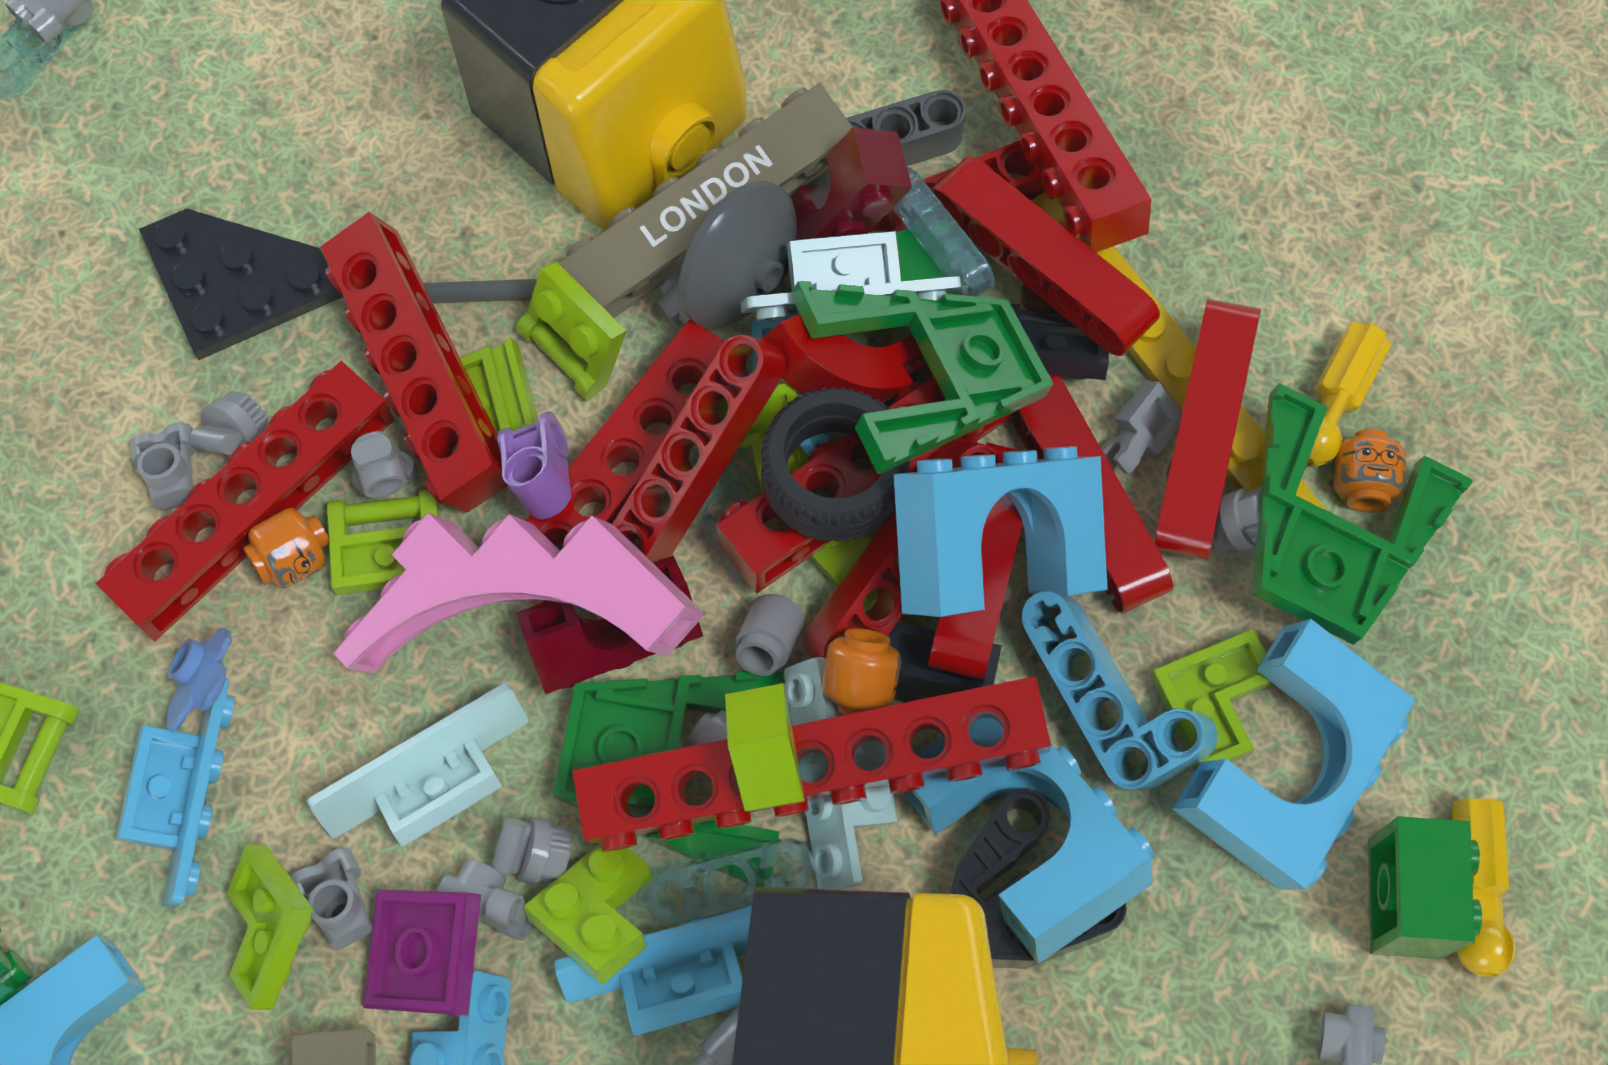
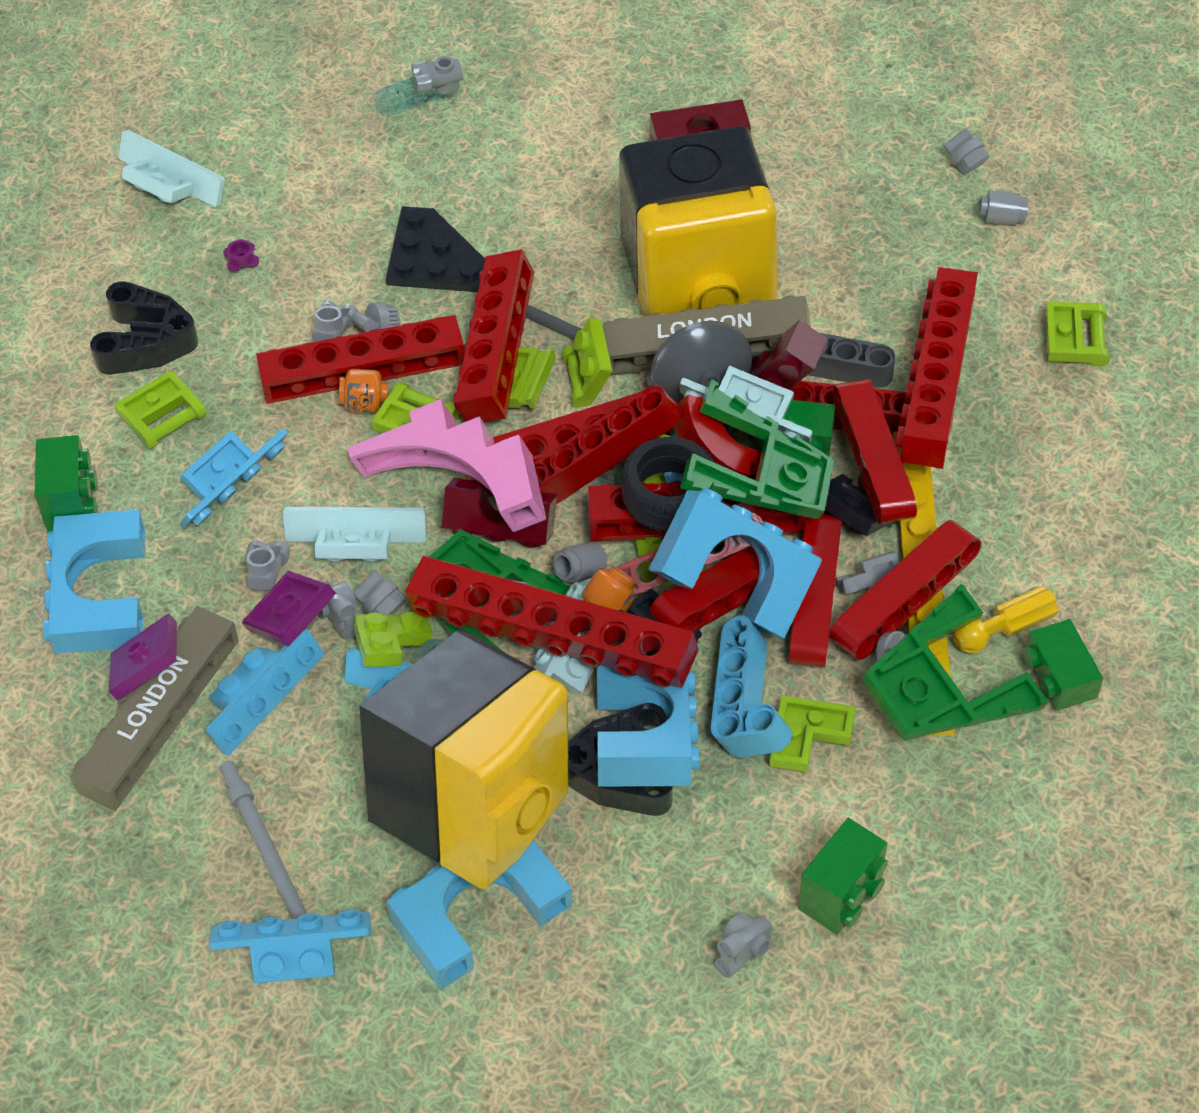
camera: 35 degrees right, 15 degrees down
(198, 676) = (273, 423): medium blue plate -> none
(275, 920) = (230, 548): lime plate -> none
(380, 466) = (438, 375): light grey plate -> none
(537, 465) = (517, 411): medium lavender piece -> none
(763, 748) = (523, 591): lime slope -> none
(943, 238) = (821, 409): clear light blue beam -> none
(1357, 720) = (790, 814): medium azure arch -> none
(1370, 471) = (991, 666): orange head -> none
(1453, 417) = (1062, 664): none -> green brick
(1495, 944) = (888, 905): yellow piece -> none

